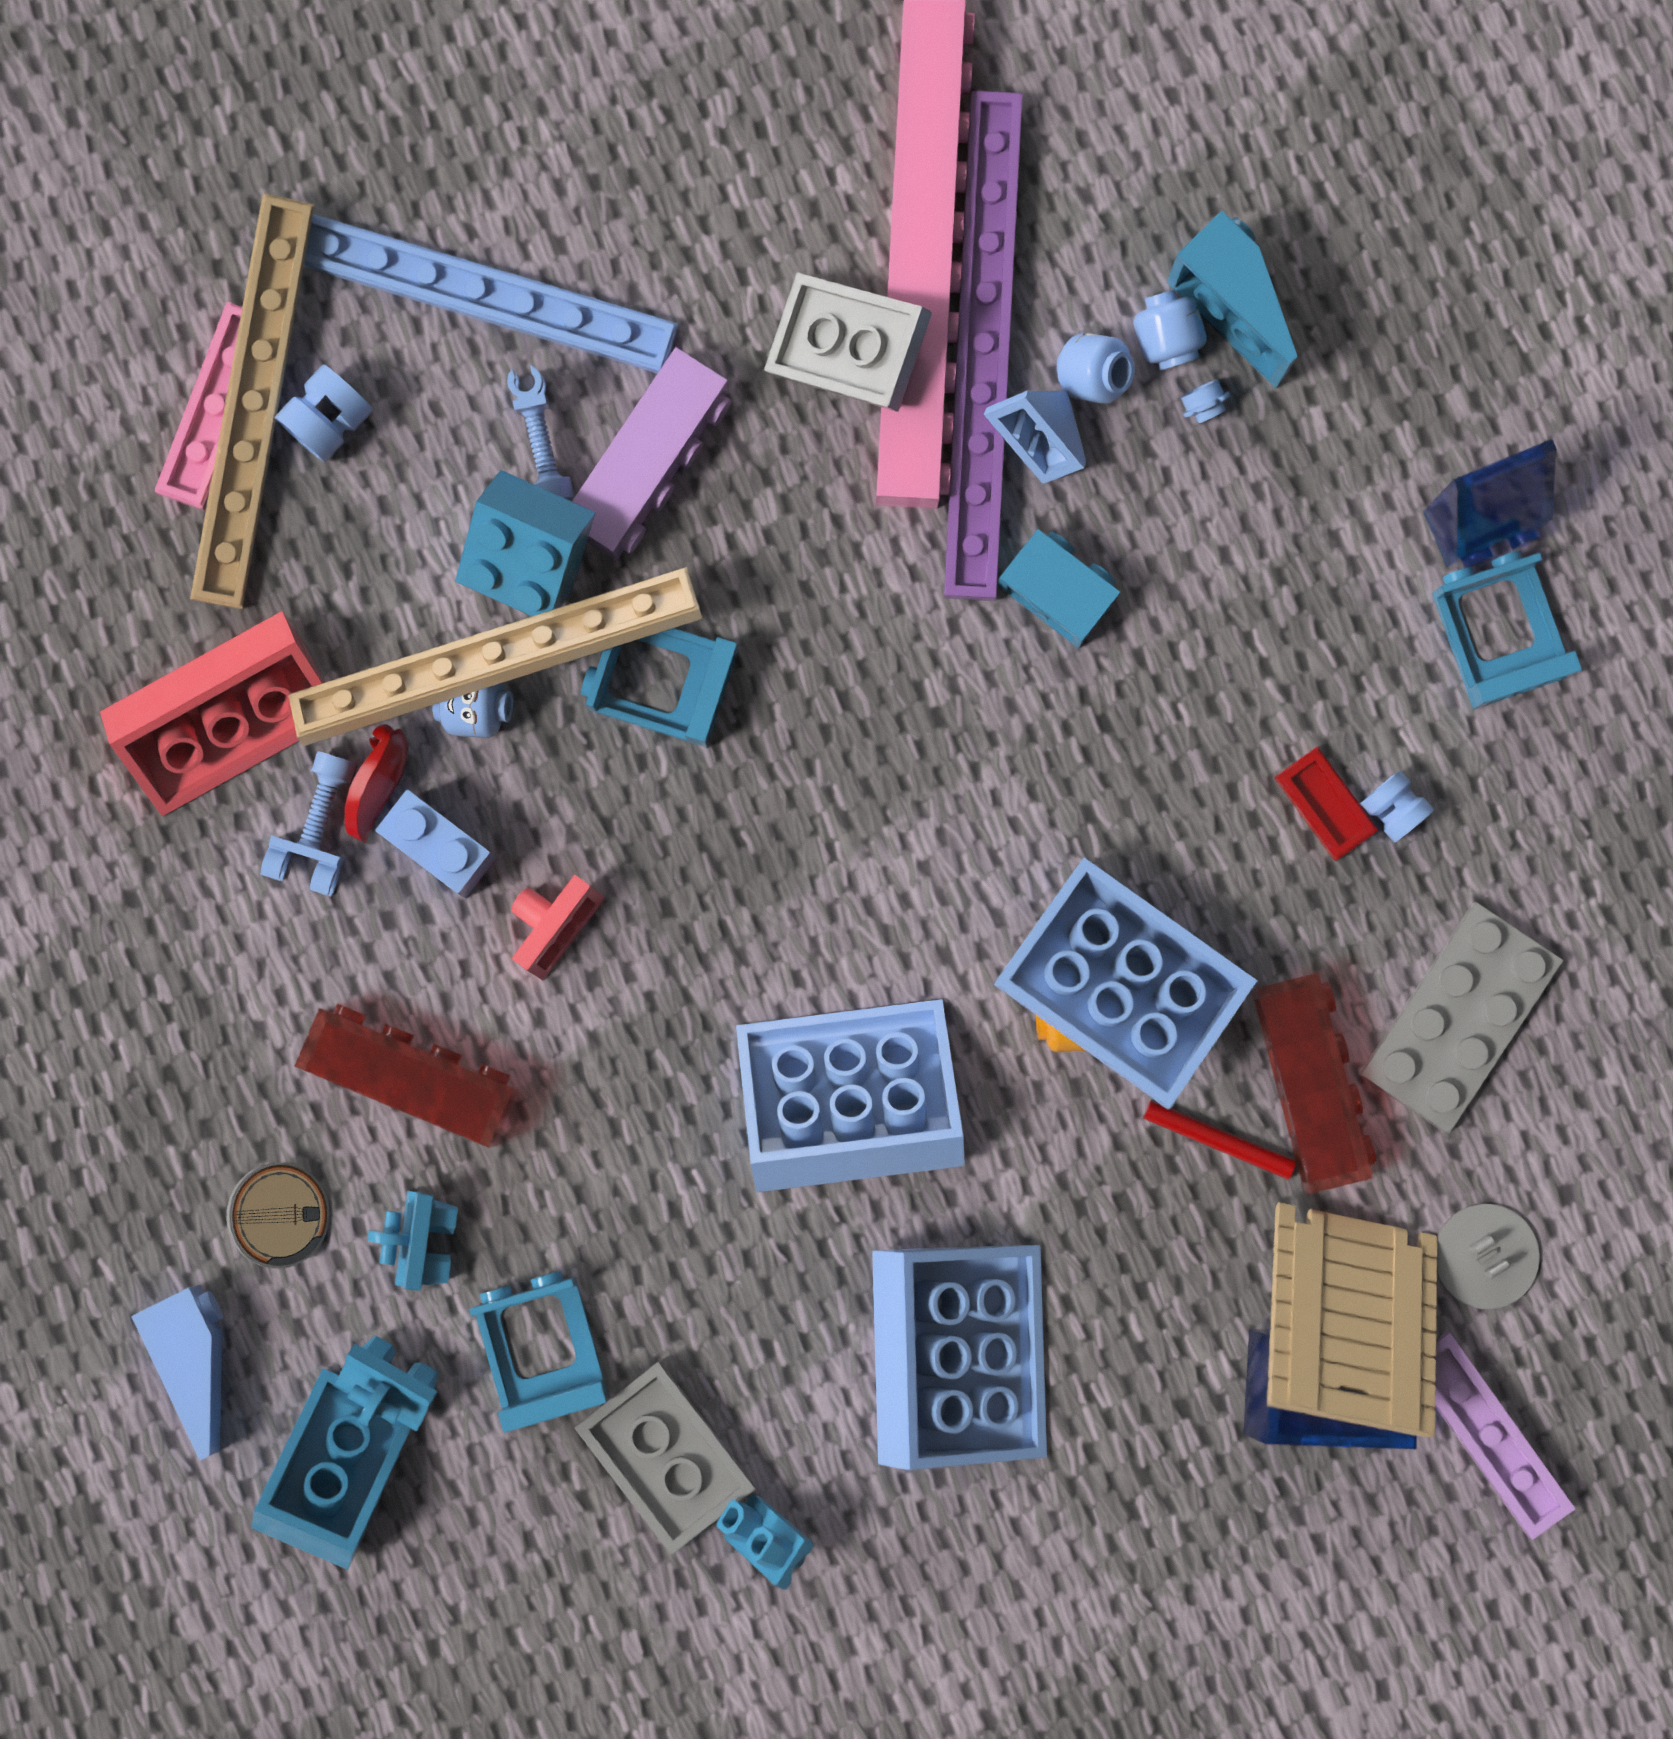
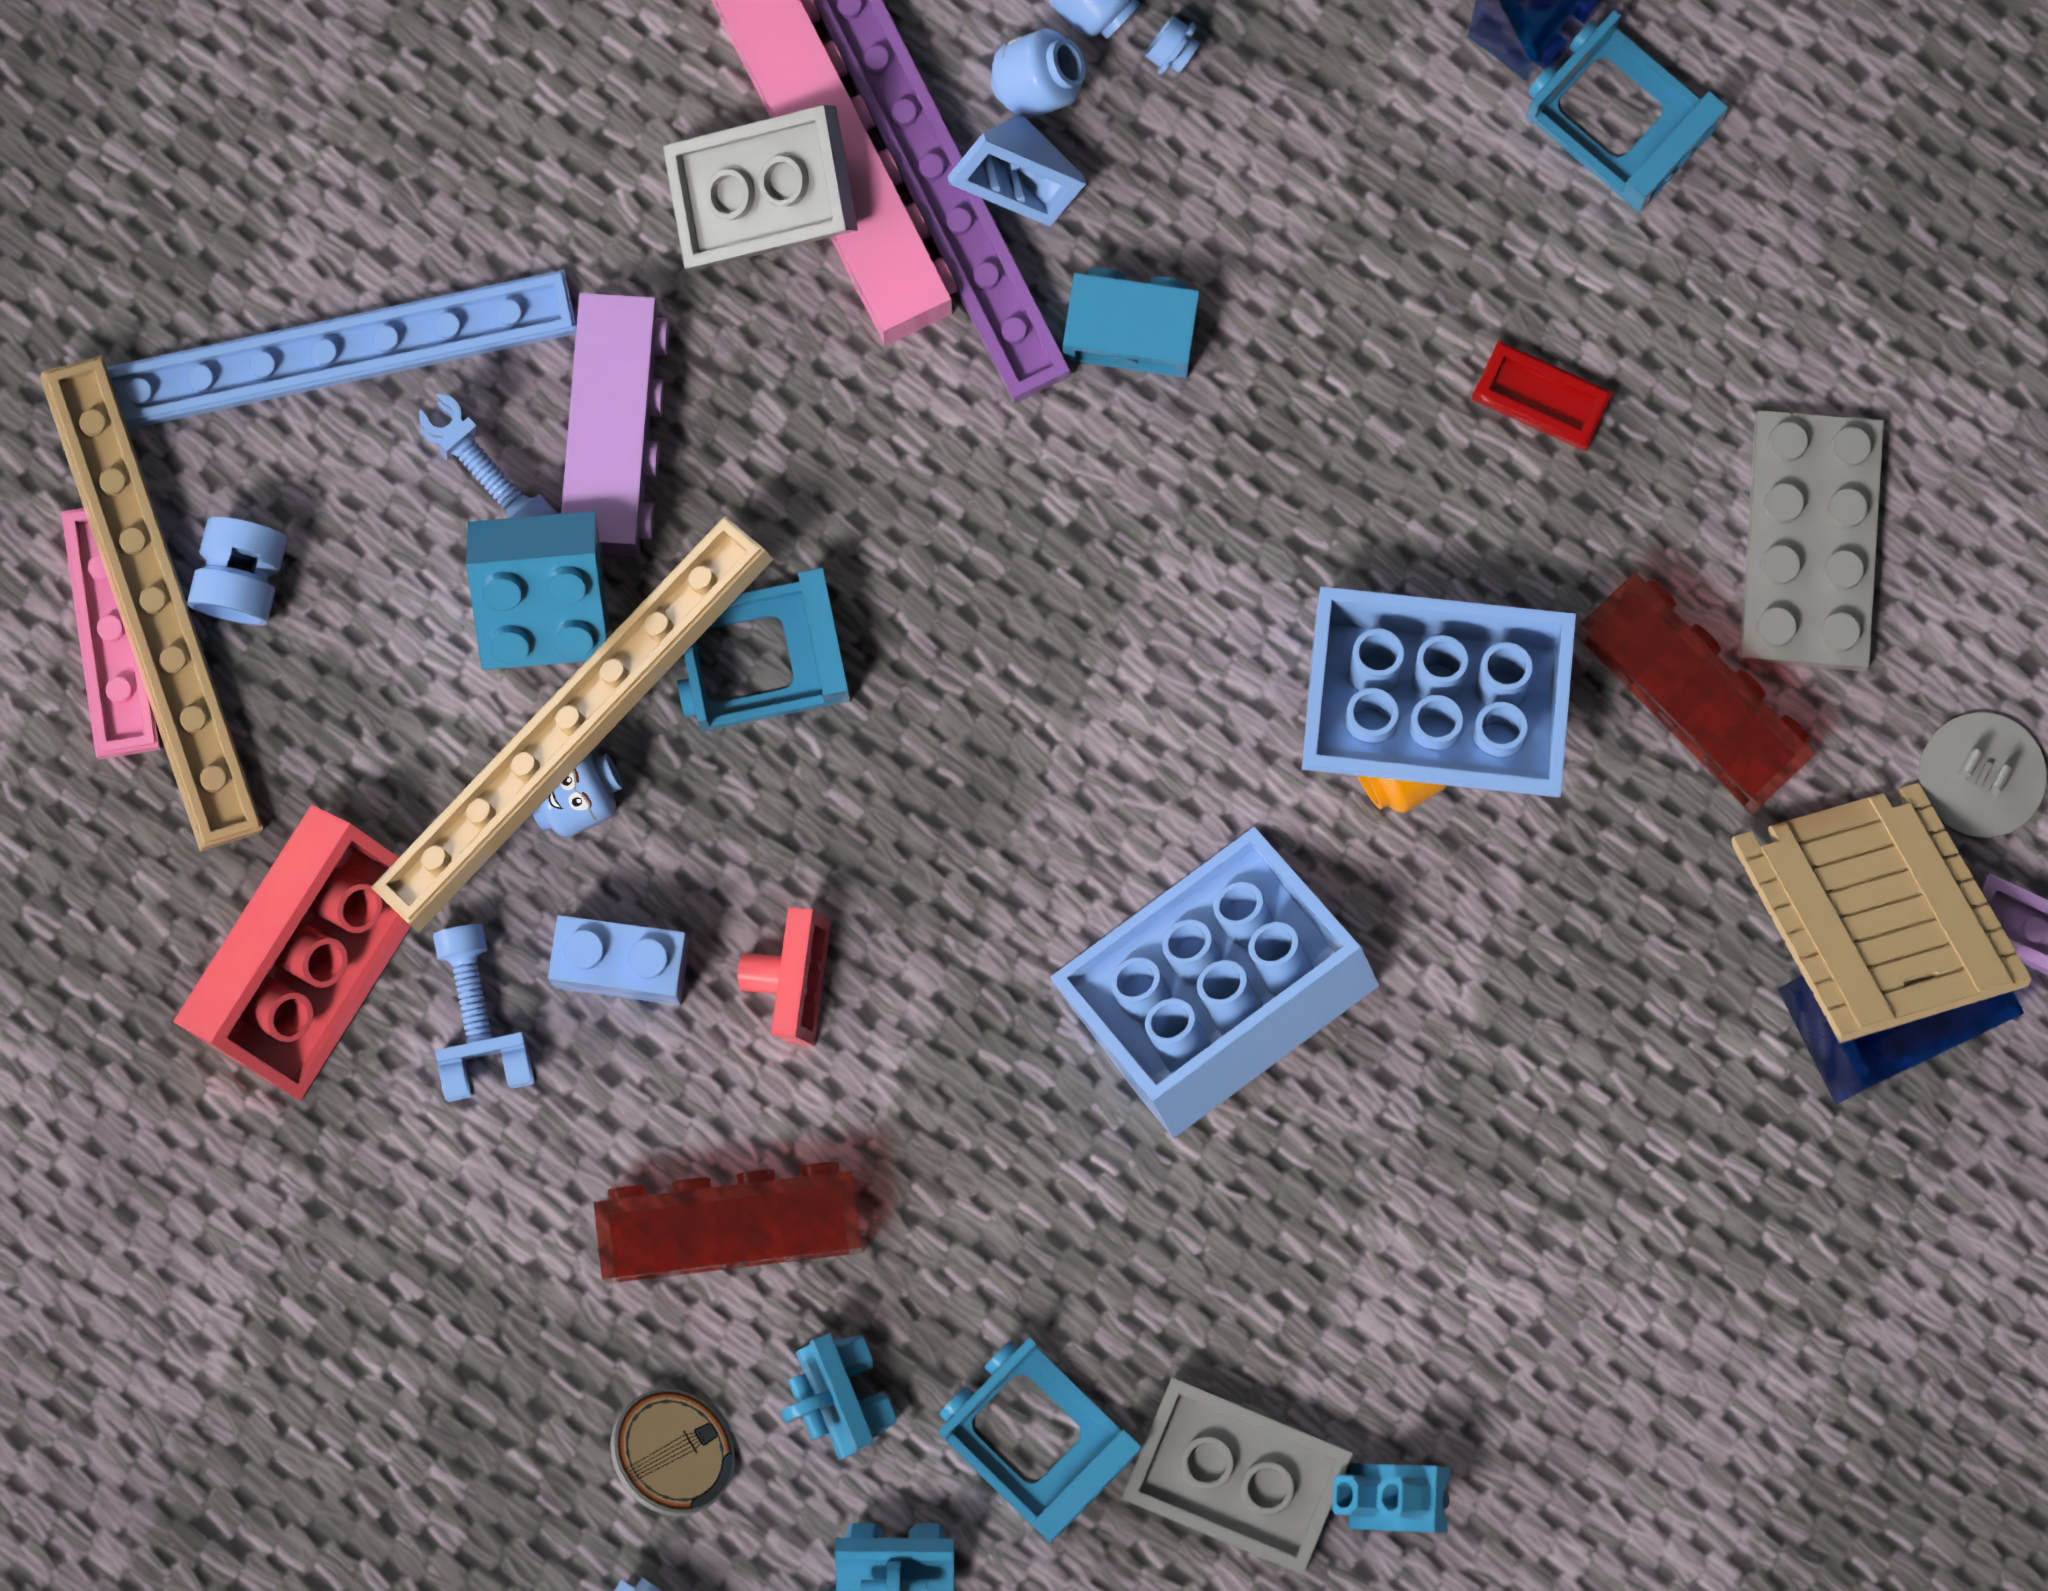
camera: 30 degrees left, 5 degrees down
(375, 781) = (515, 930): red arm -> none
(959, 1356) = (1487, 1188): light blue slope -> none
(1220, 1140) = (1632, 809): red bar -> none
(1397, 806) = (1617, 356): light blue wheel -> none

